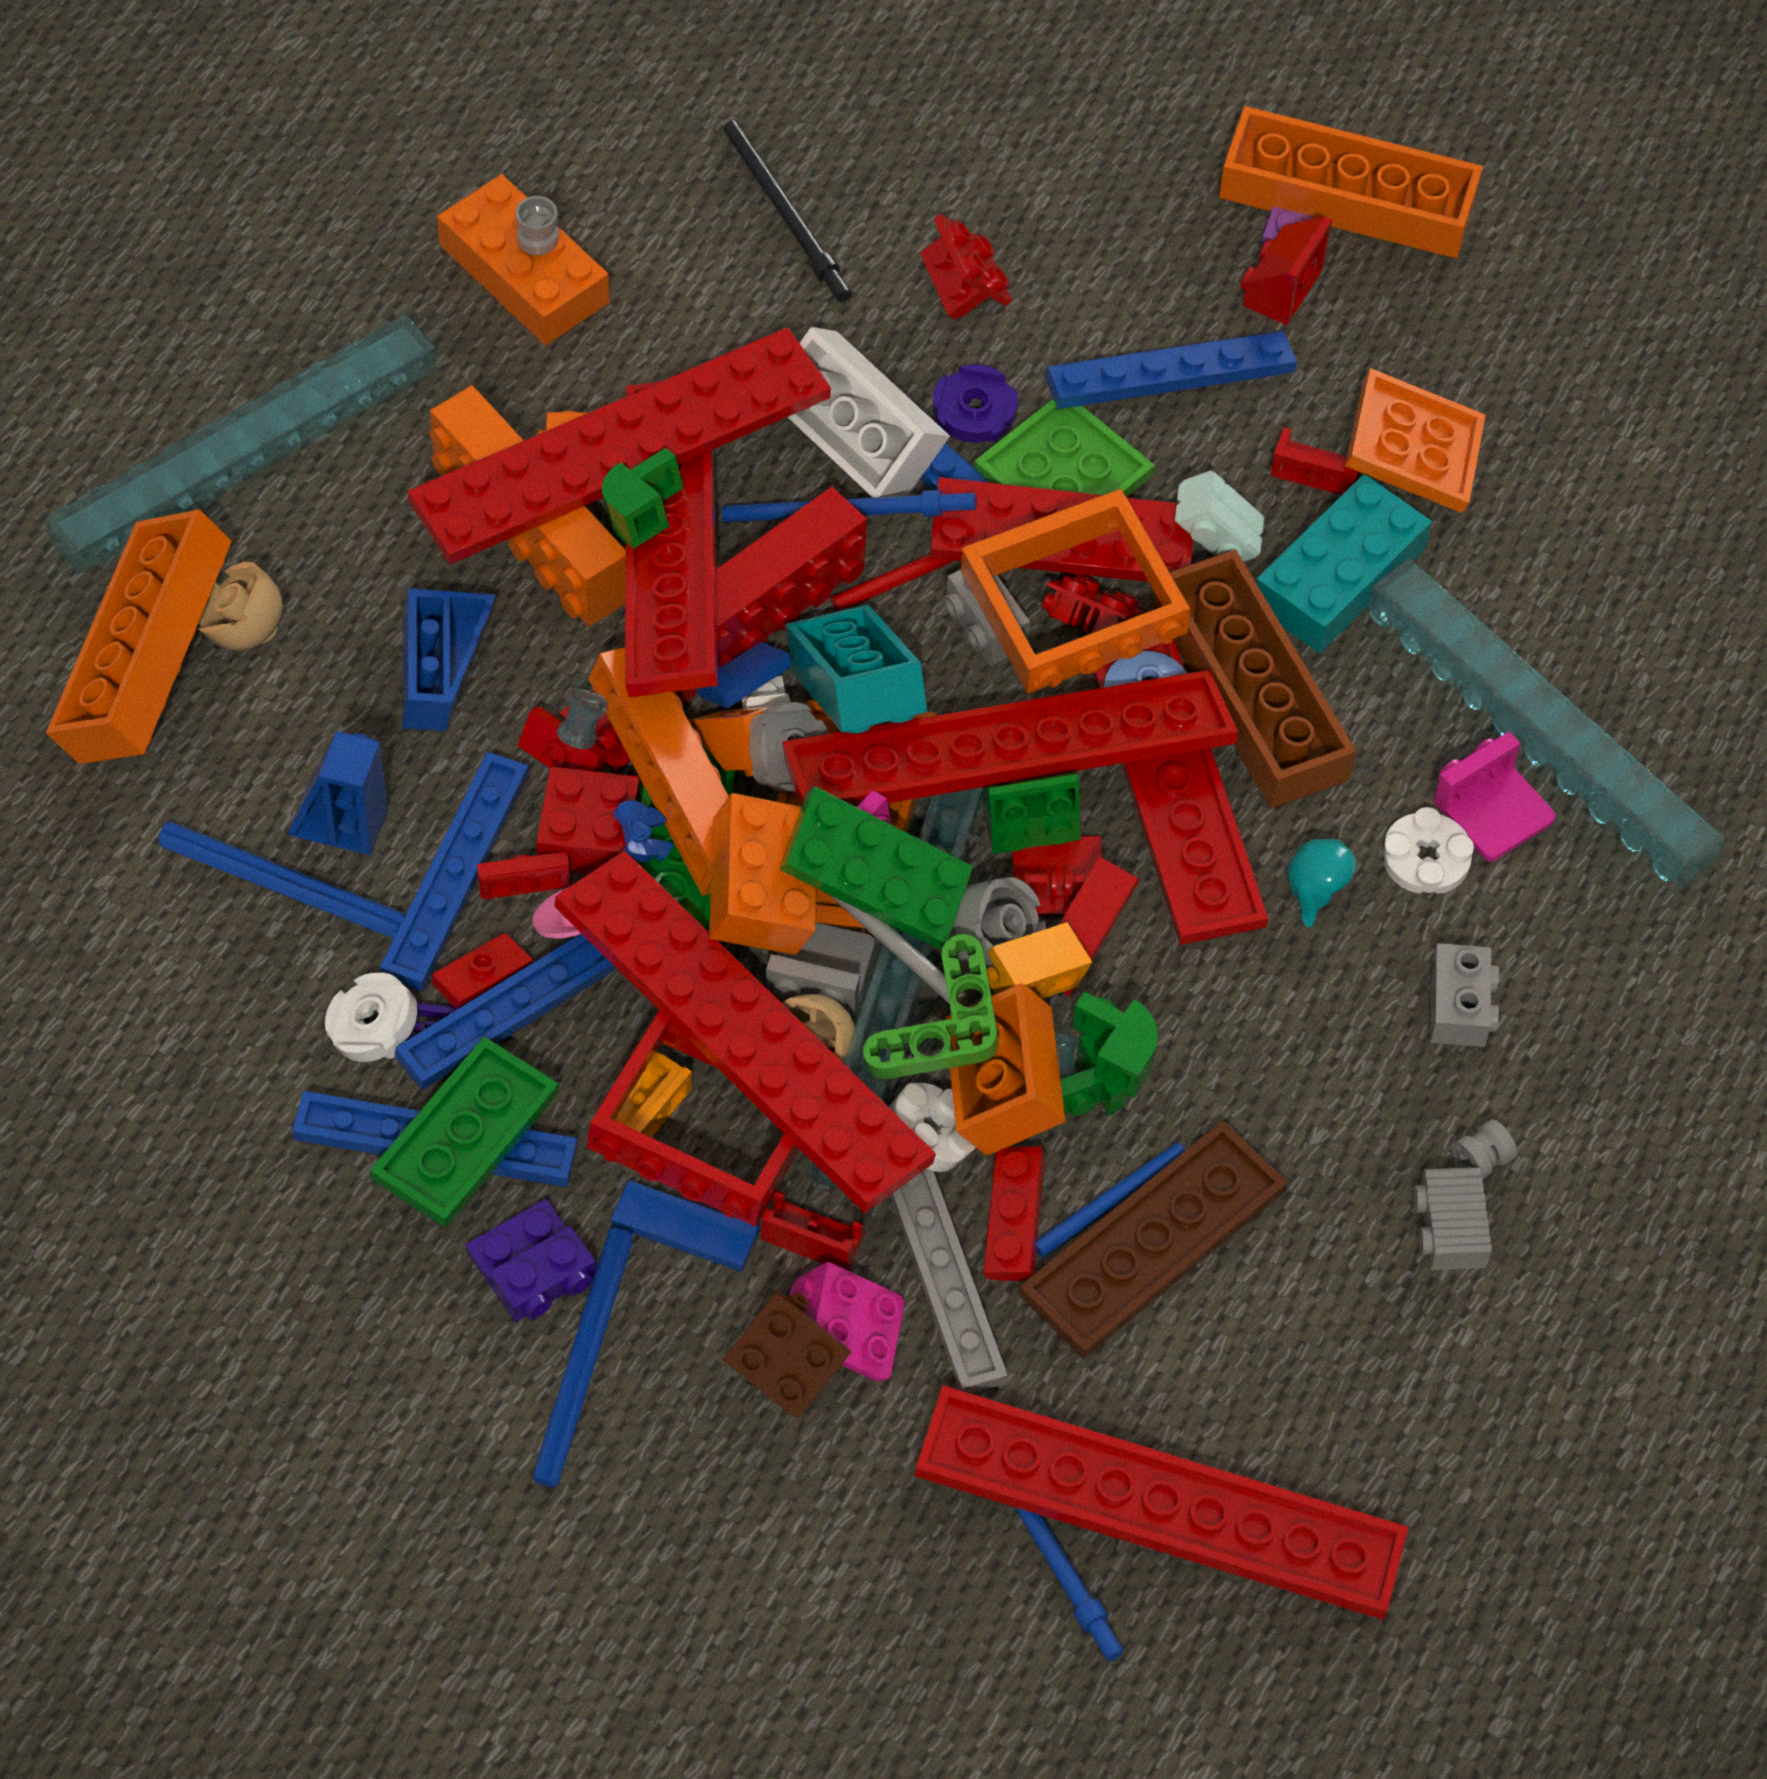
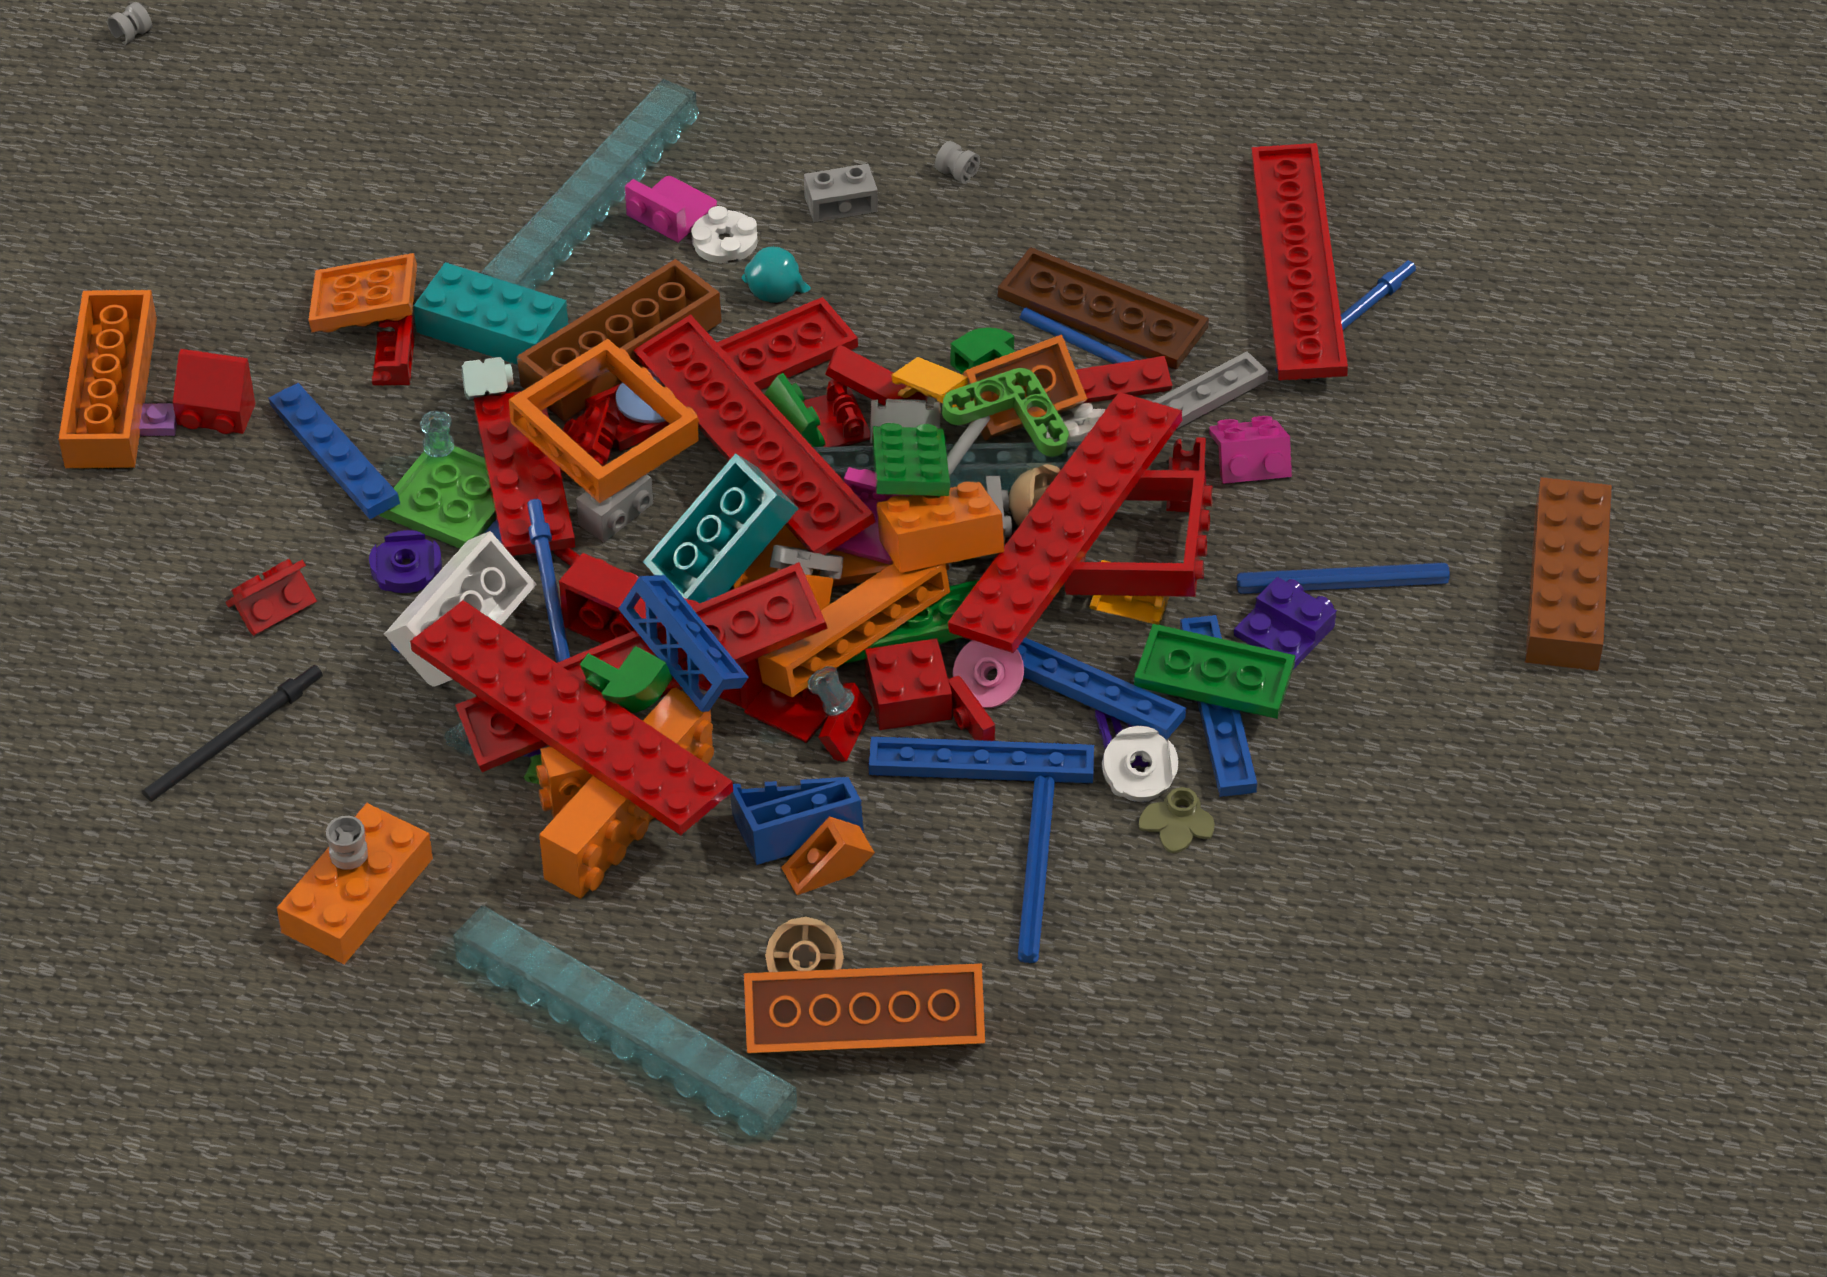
camera: 105 degrees left, 10 degrees down
(280, 1041) = (1177, 824): none -> olive plate
(344, 796) = (963, 819): blue wedge -> none
(376, 683) = (828, 856): none -> orange slope
(473, 1613) = (1569, 574): none -> dark orange brick
(480, 970) = (1064, 717): red plate -> none
(637, 826) = (928, 622): blue piece -> none
(665, 555) = (682, 626): none -> blue fence
(685, 1226) = (1219, 555): blue tile -> none
(787, 1353) = (1295, 455): reddish brown hinge -> none
(1127, 1040) = (980, 321): green brick -> none
(1141, 458) = (436, 434): none -> clear light blue bush
(1453, 1218) = (1016, 166): light grey brick -> none

